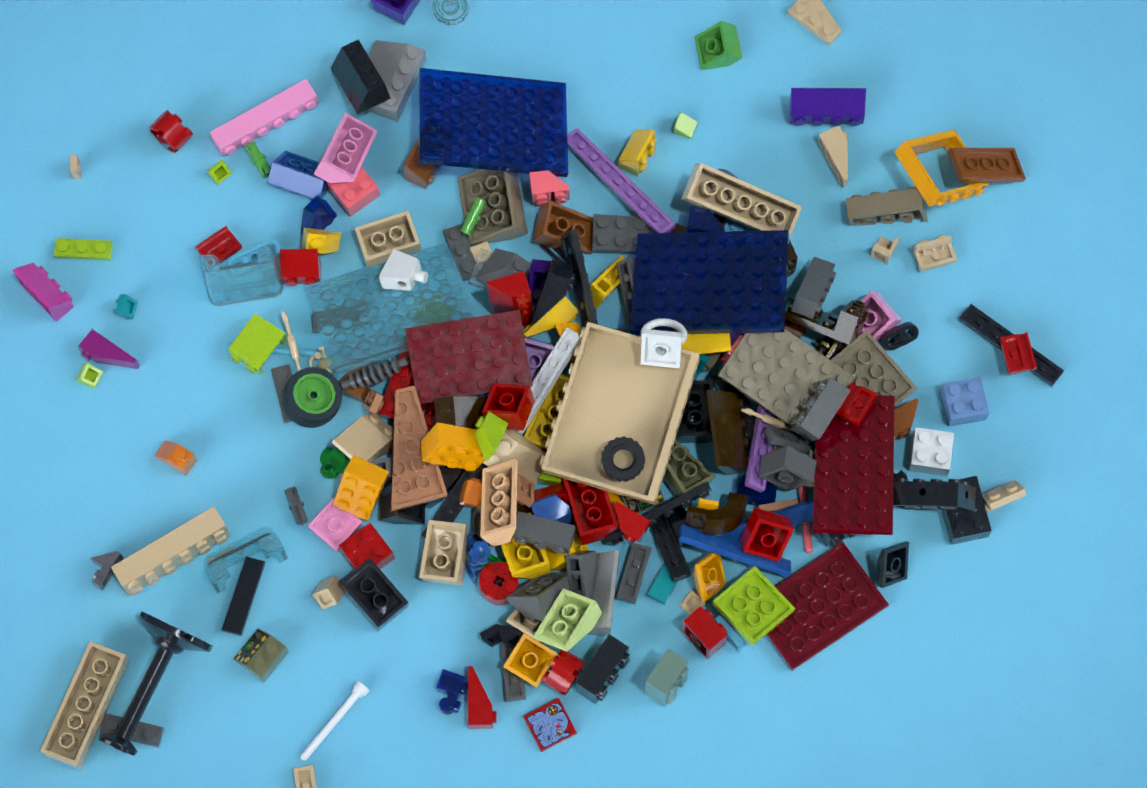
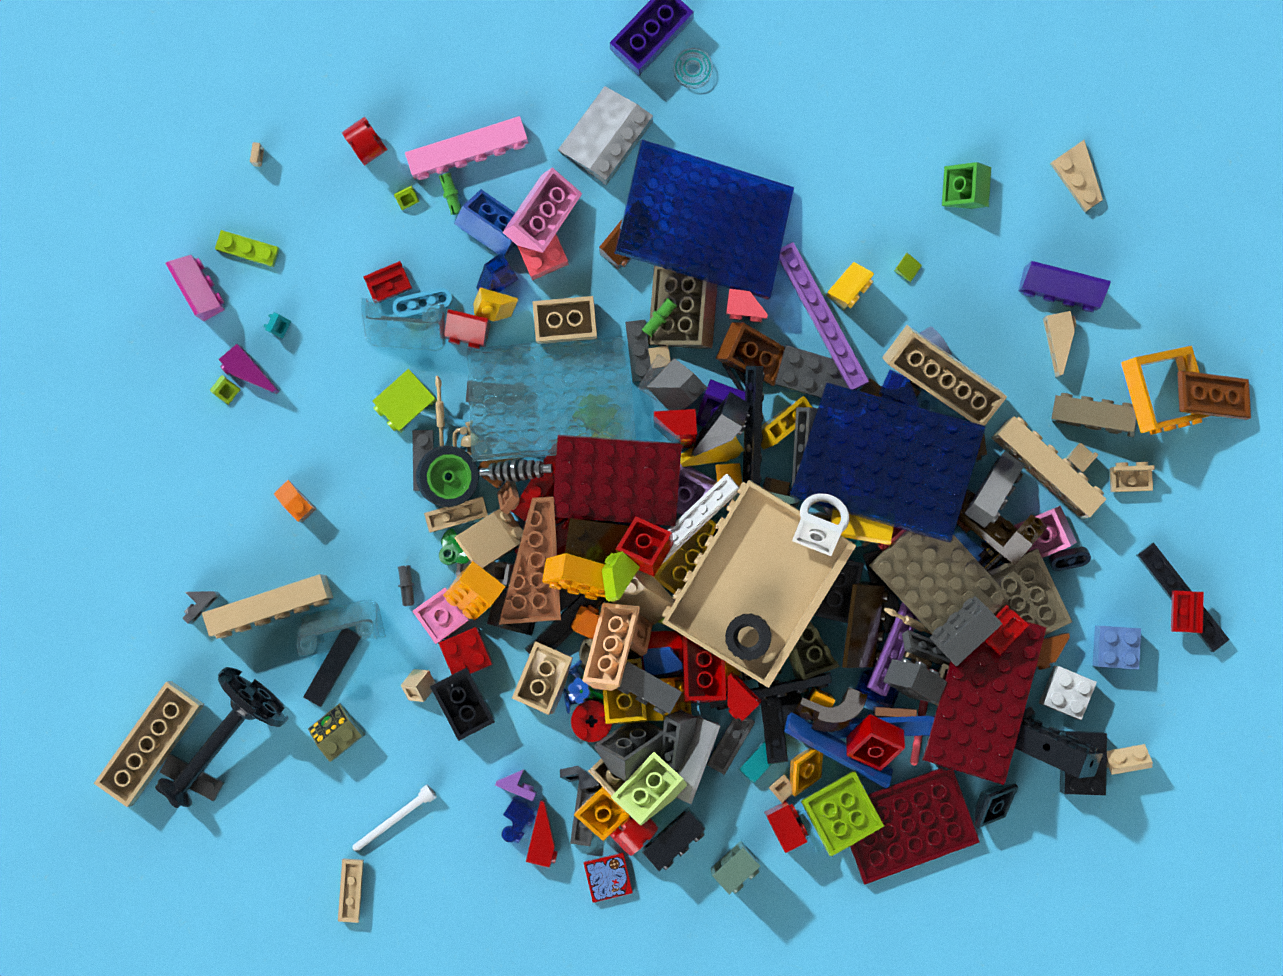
camera: 15 degrees right, 15 degrees up
(326, 433) = (456, 515): none -> tan plate
(359, 77) = (575, 130): black slope -> none
(402, 272) = (570, 364): white torso -> none
(437, 660) = (511, 784): none -> medium lavender slope
(858, 260) = (1049, 468): none -> tan brick

